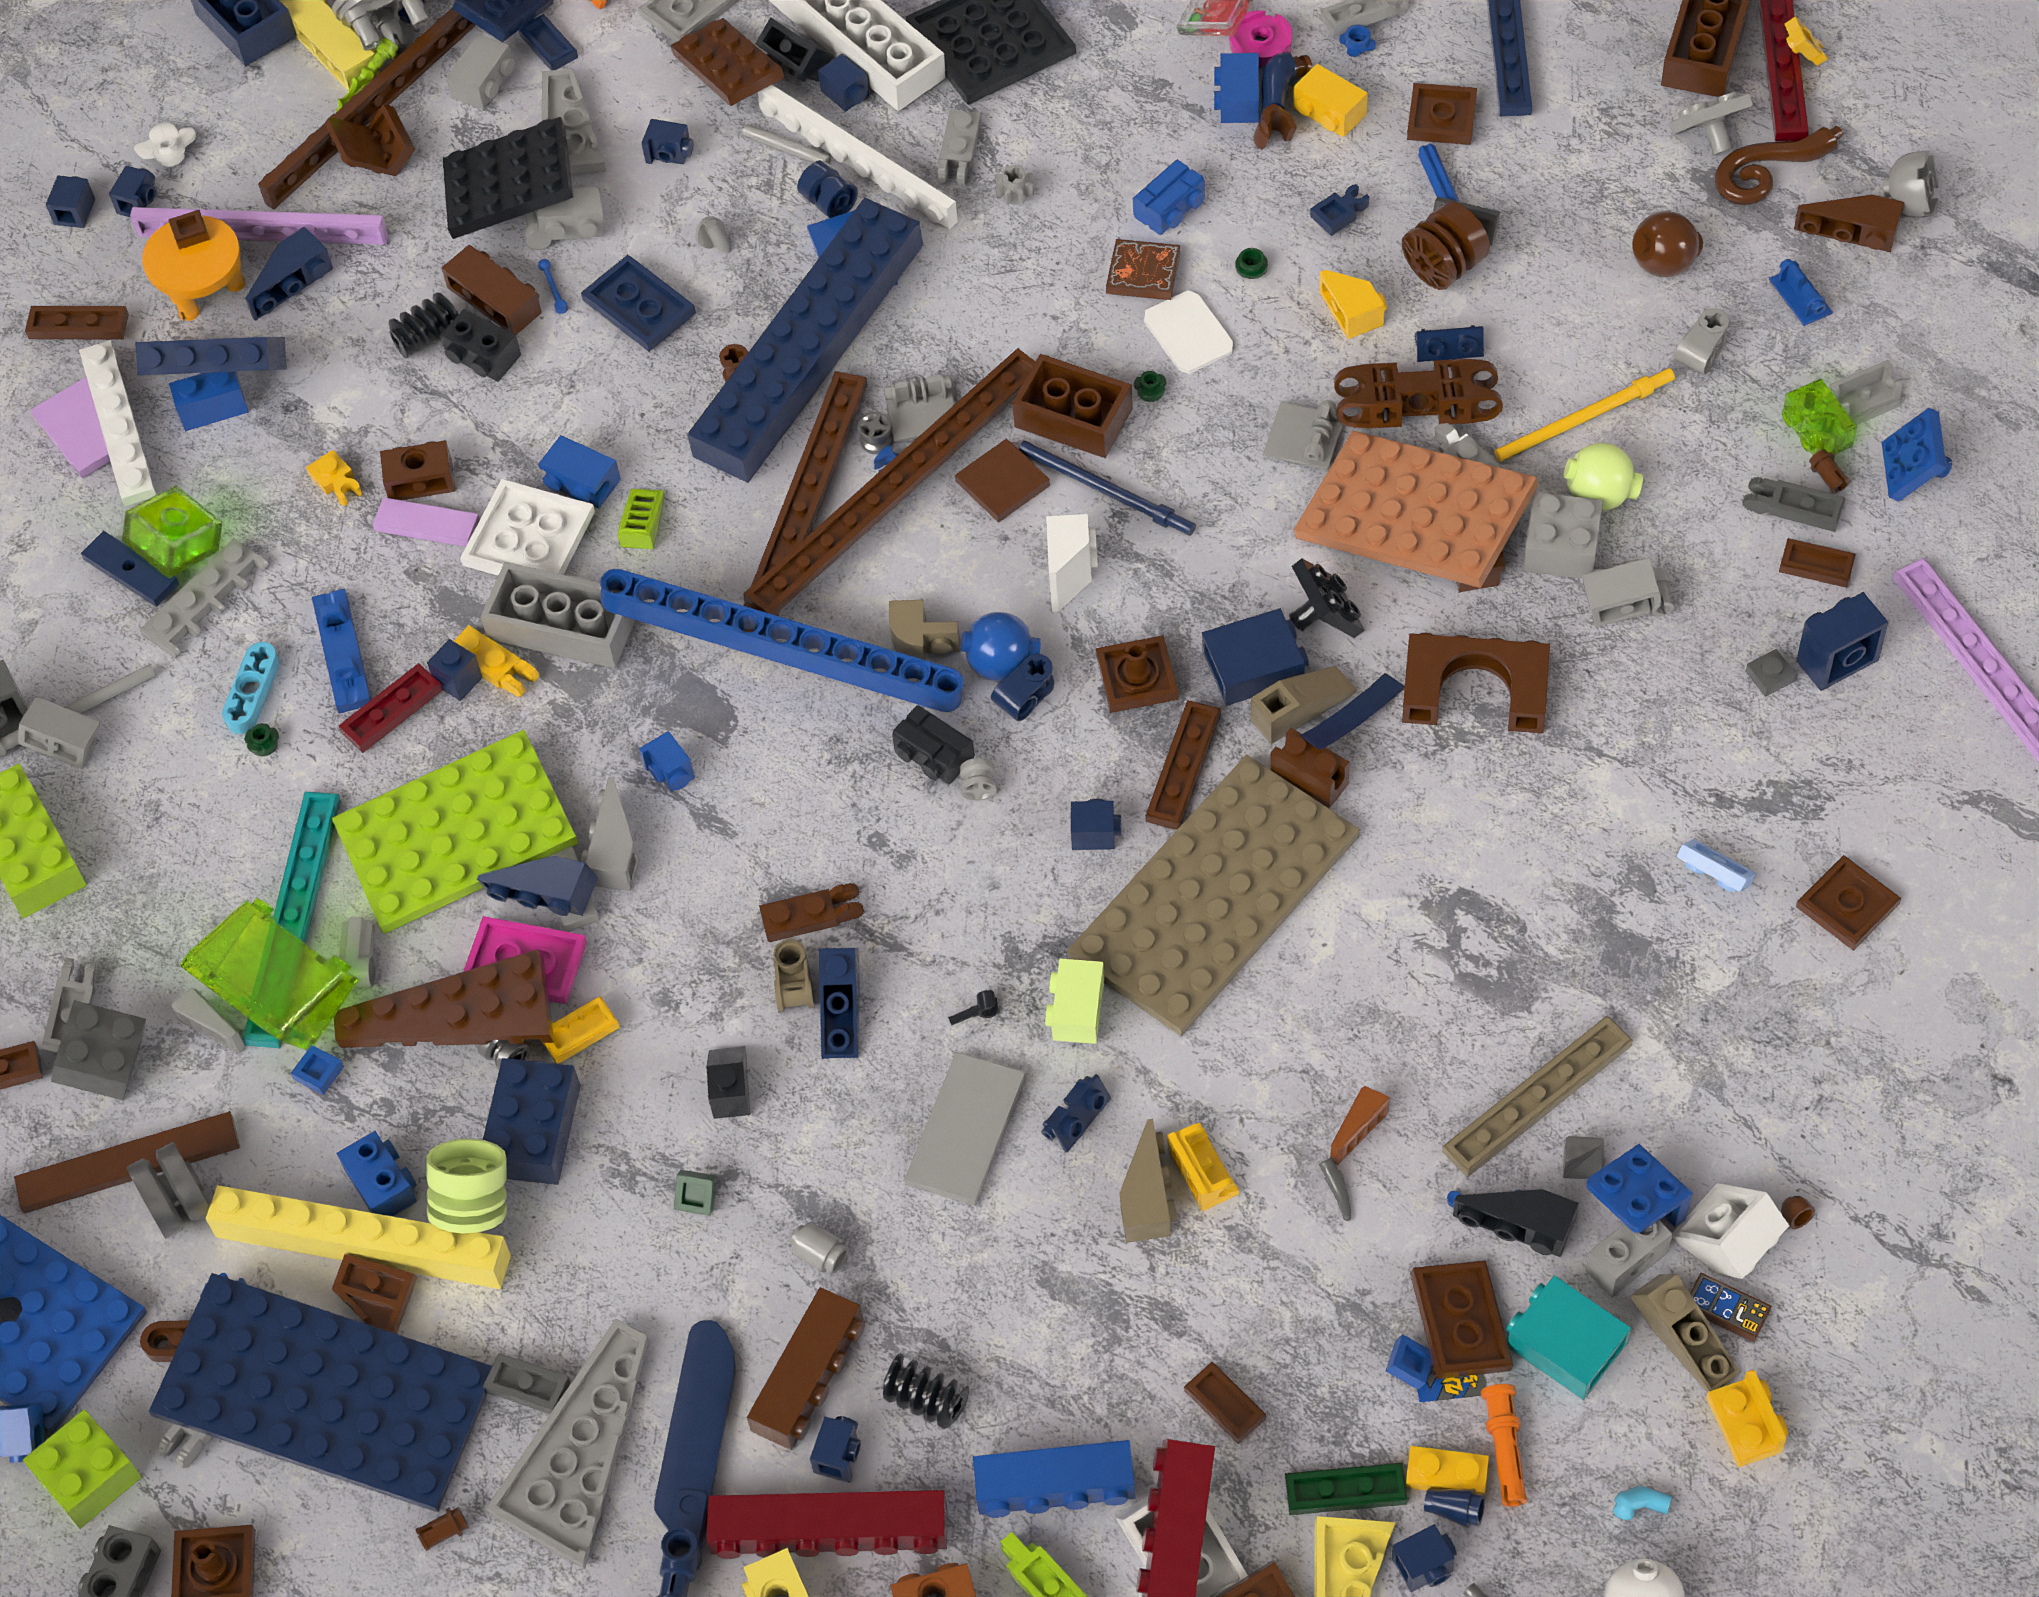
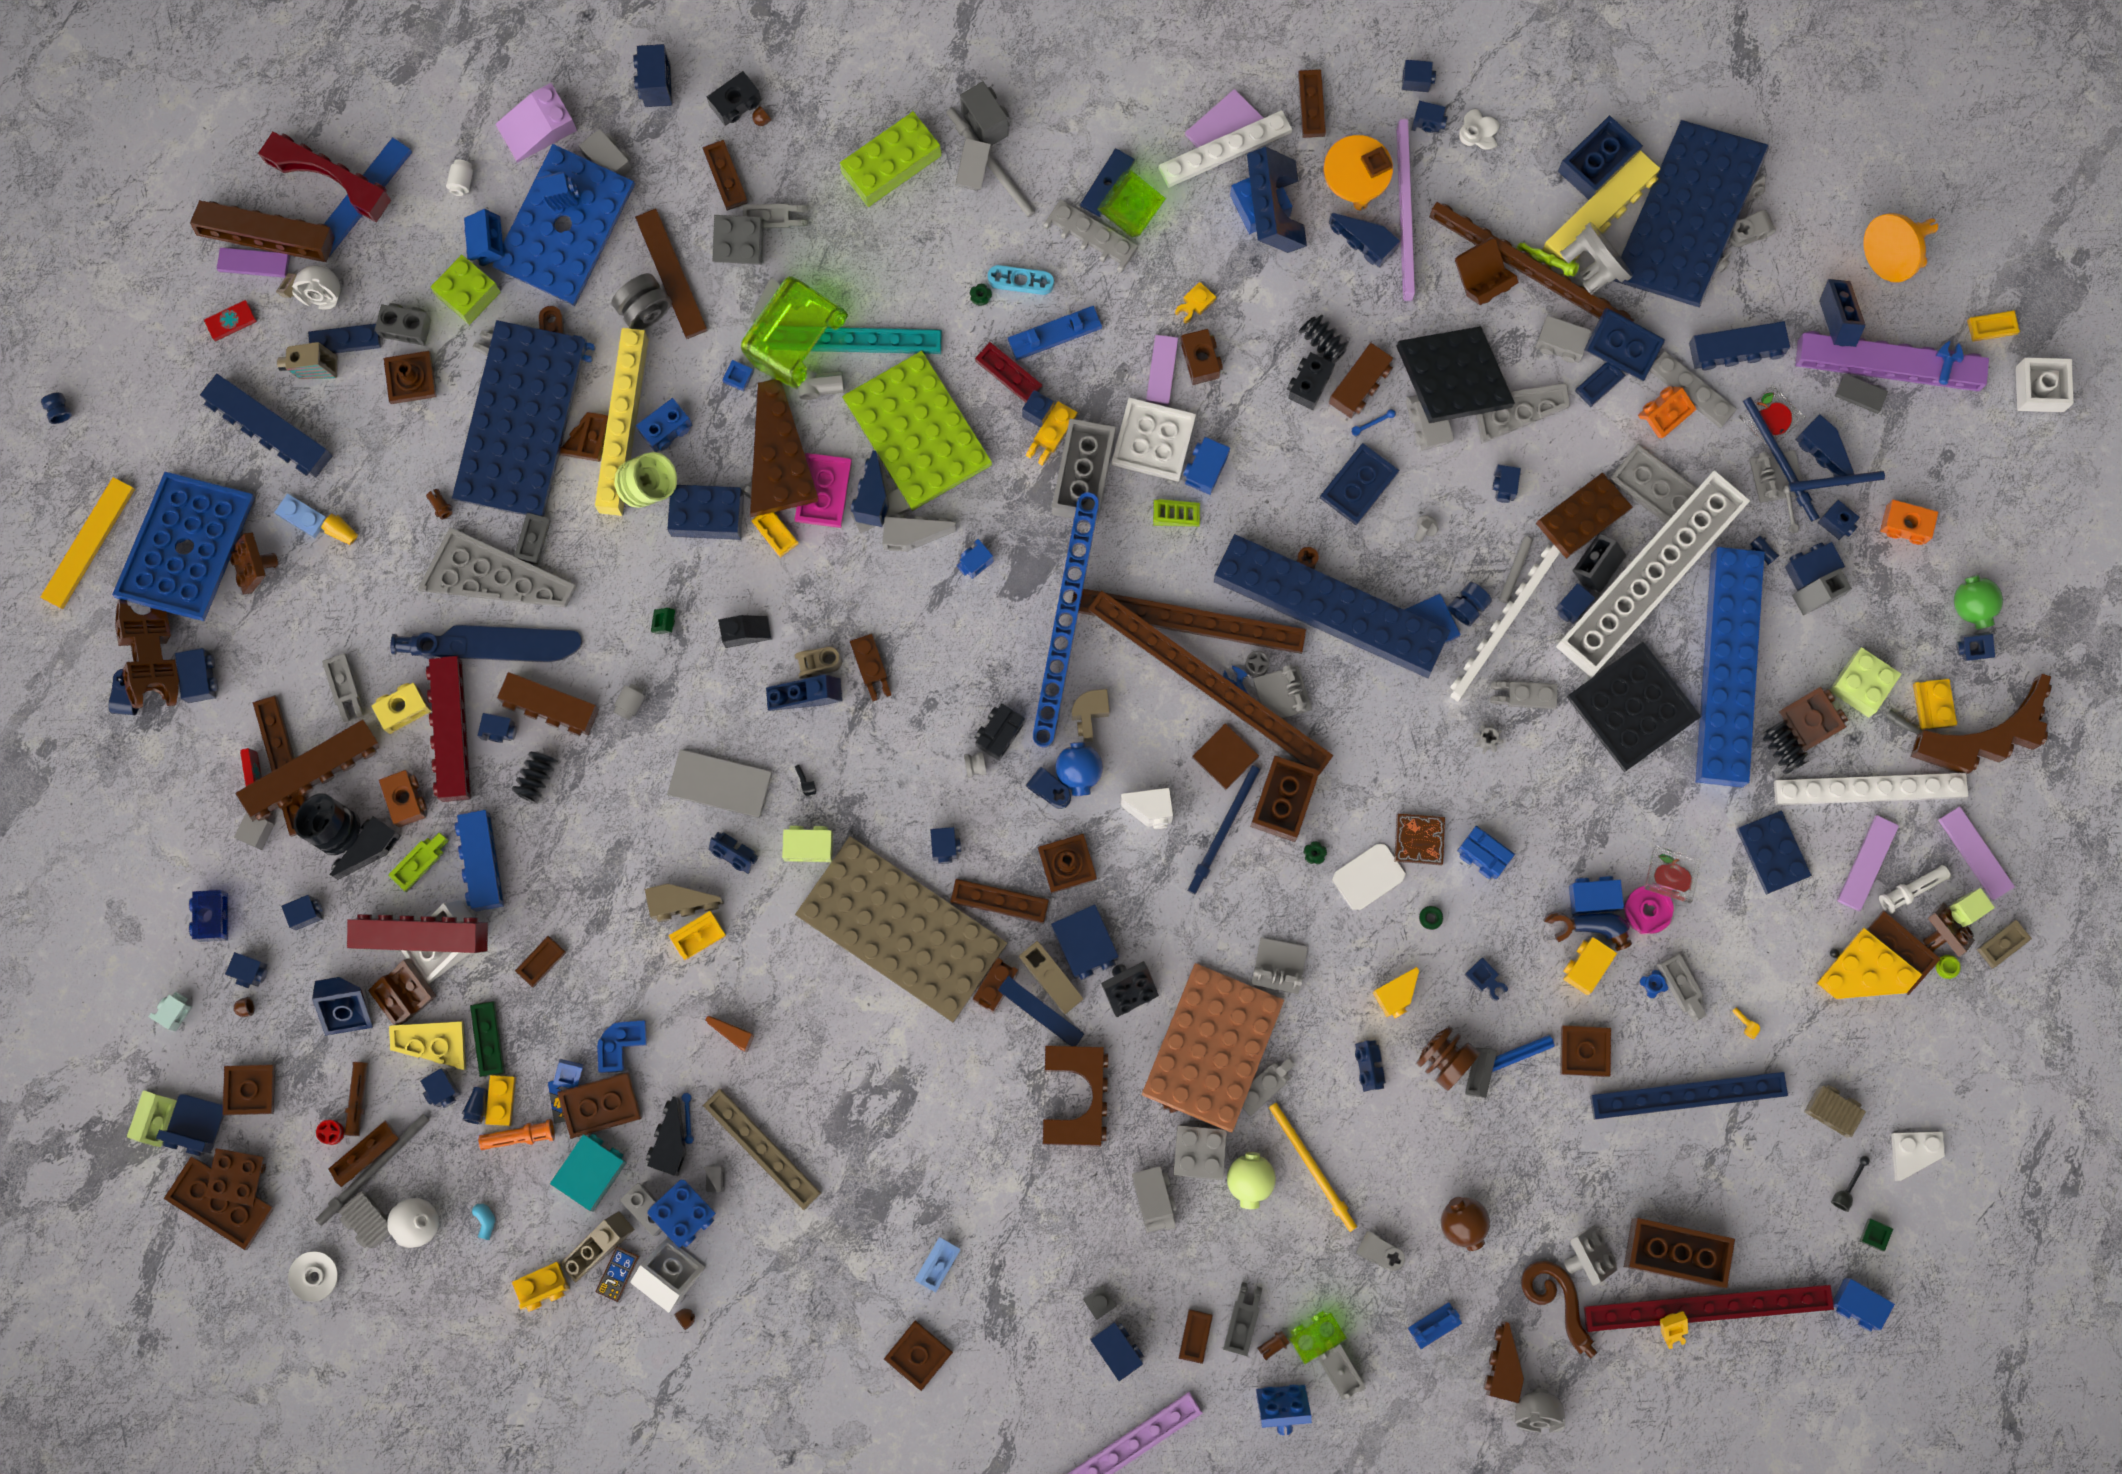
camera: 80 degrees right, 20 degrees up
(1337, 1185) = (693, 1021): dark grey helmet -> none
(1364, 1296) = (614, 1039): none -> blue plate
(1417, 393) = (1315, 1044): reddish brown piece -> none

